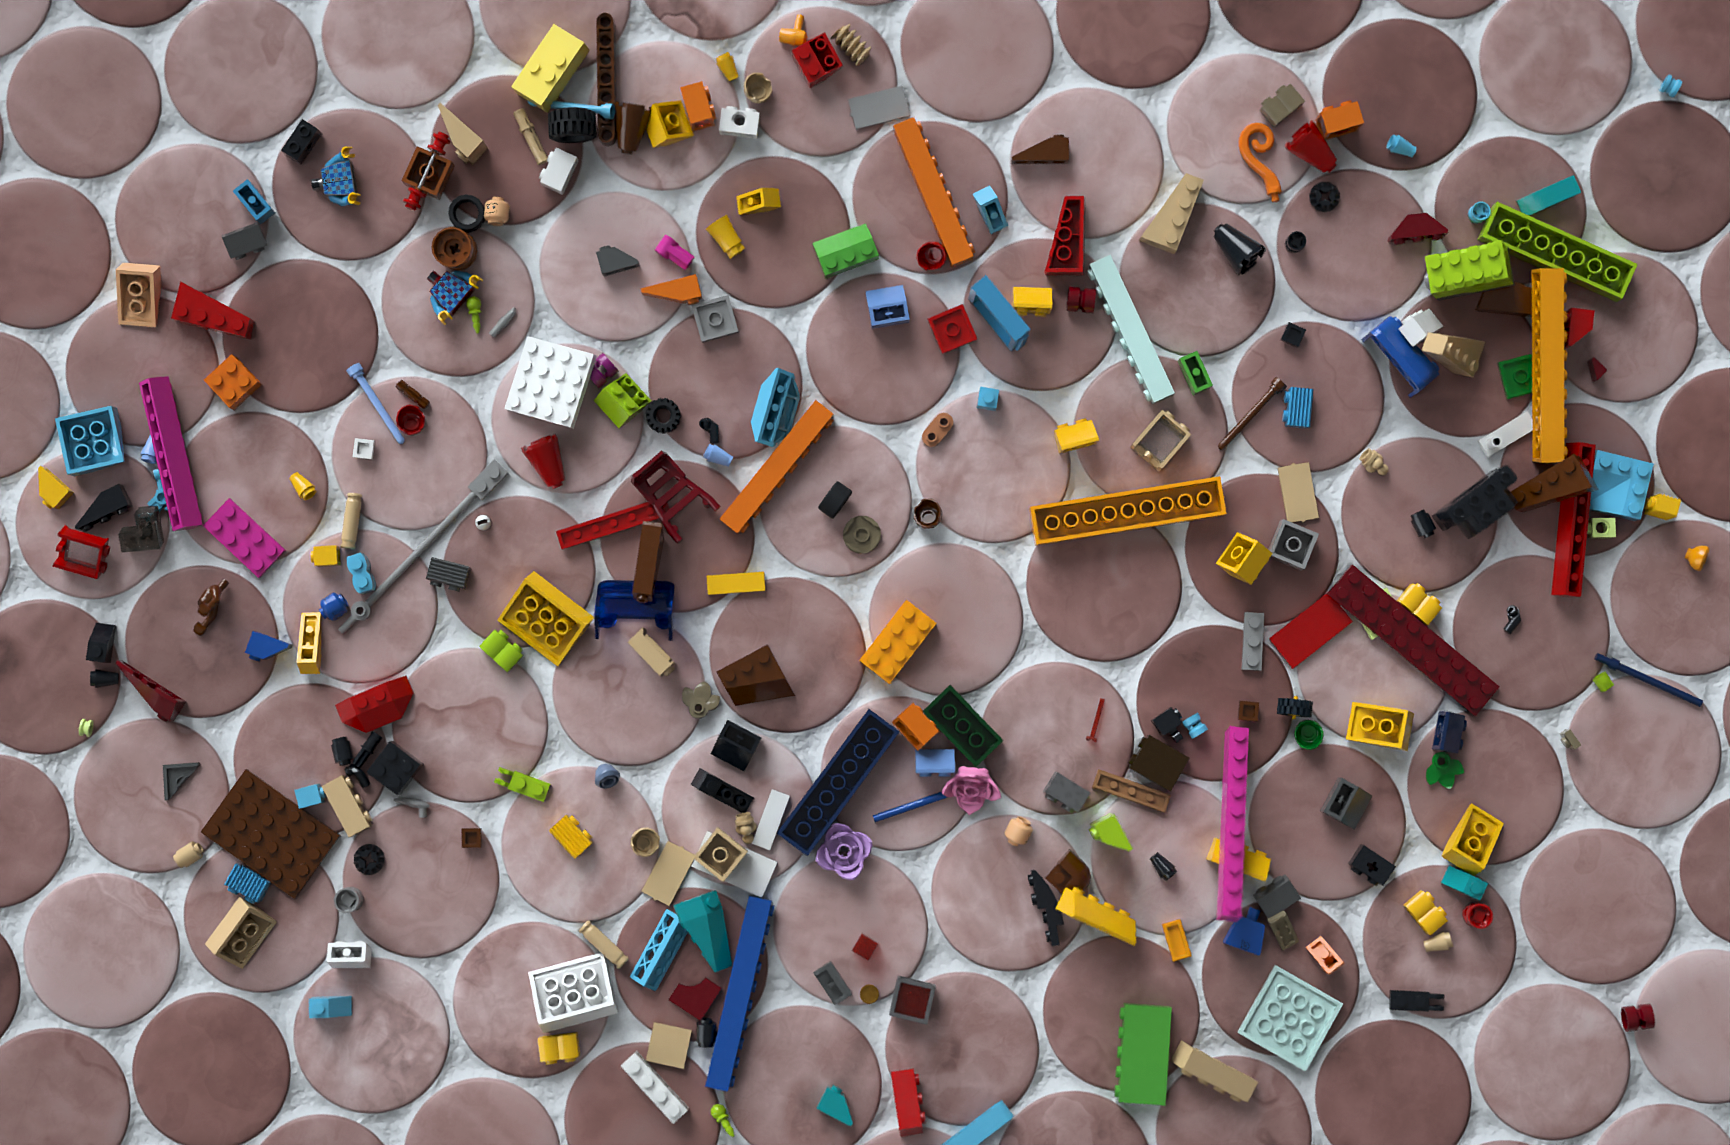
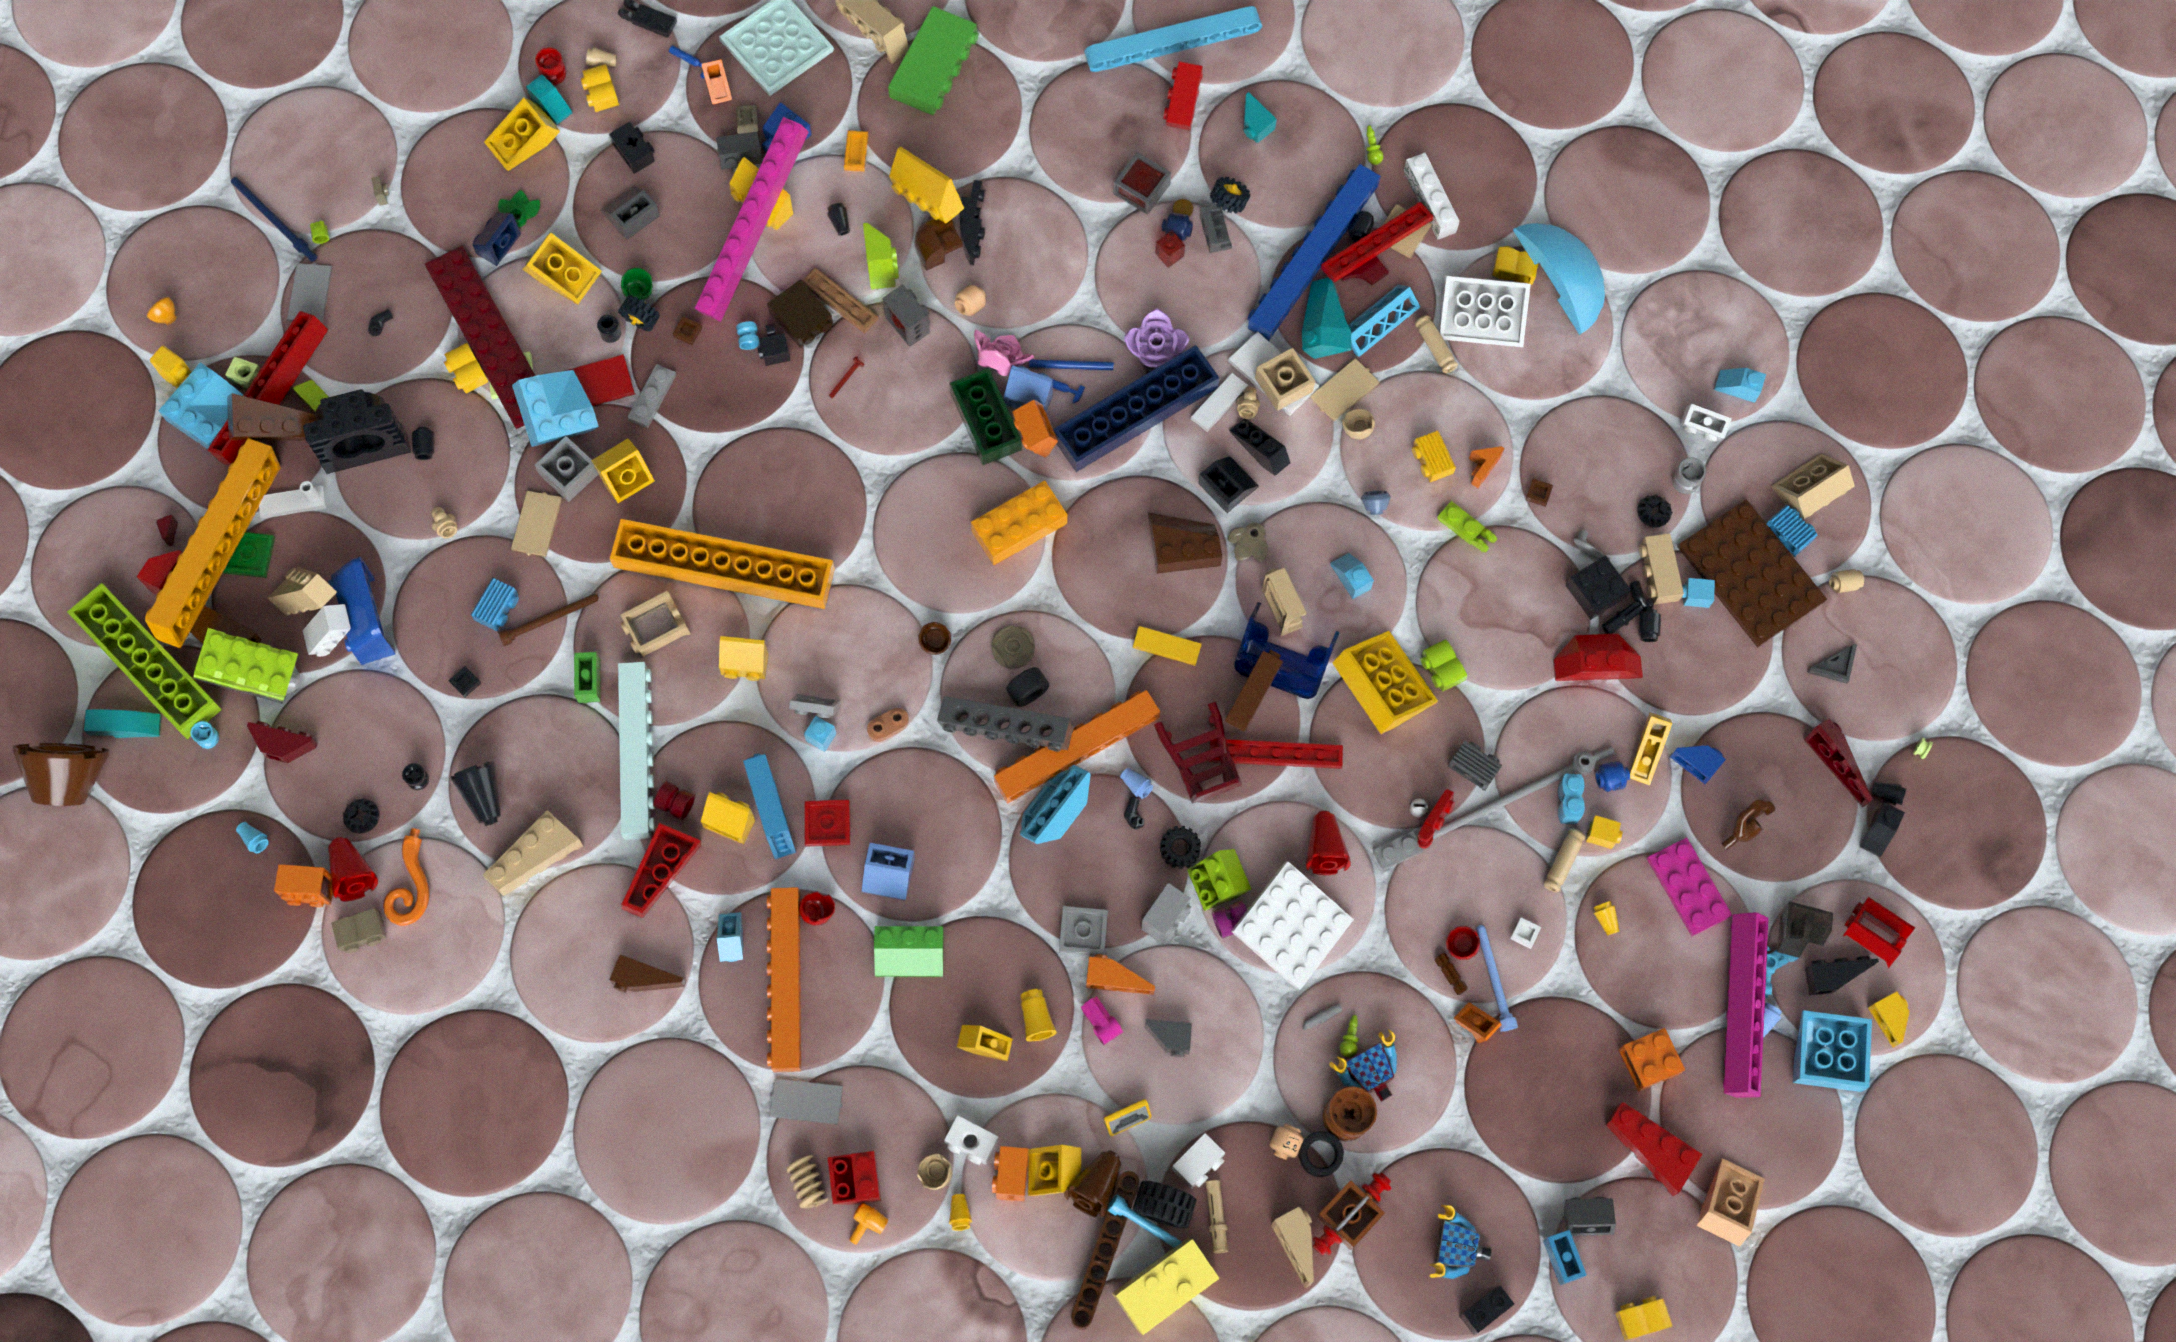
camera: 160 degrees left, 15 degrees down
(180, 180) = (1643, 1319): none -> yellow brick
(378, 359) = (1477, 1022): none -> orange slope
(465, 513) = (1436, 819): none -> red hinge
(510, 1059) = (1569, 268): none -> medium azure brick
(524, 851) = (1485, 461): none -> orange slope
(605, 703) = (1352, 575): none -> medium azure slope
(627, 186) = (1127, 1117): none -> slope
(653, 352) = (1166, 913): none -> light grey brick
(686, 1020) = (1377, 242): none -> red plate
(831, 1018) = (1230, 195): none -> black wheel
(866, 970) = (1179, 224): none -> dark blue head
(889, 459) = (954, 708): none -> dark grey brick
(911, 782) = (1065, 388): none -> blue piece
(1001, 418) = (822, 706): none -> light grey plate
(1320, 684) = (609, 328): none -> black brick
(1325, 590) = (554, 407): none -> medium azure slope
(1359, 974) = (686, 57): none -> blue piece
(1531, 530) = (310, 394): none -> lime slope
(1575, 137) = (59, 771): none -> reddish brown cone
(1584, 624) = (310, 290): none -> light grey piece

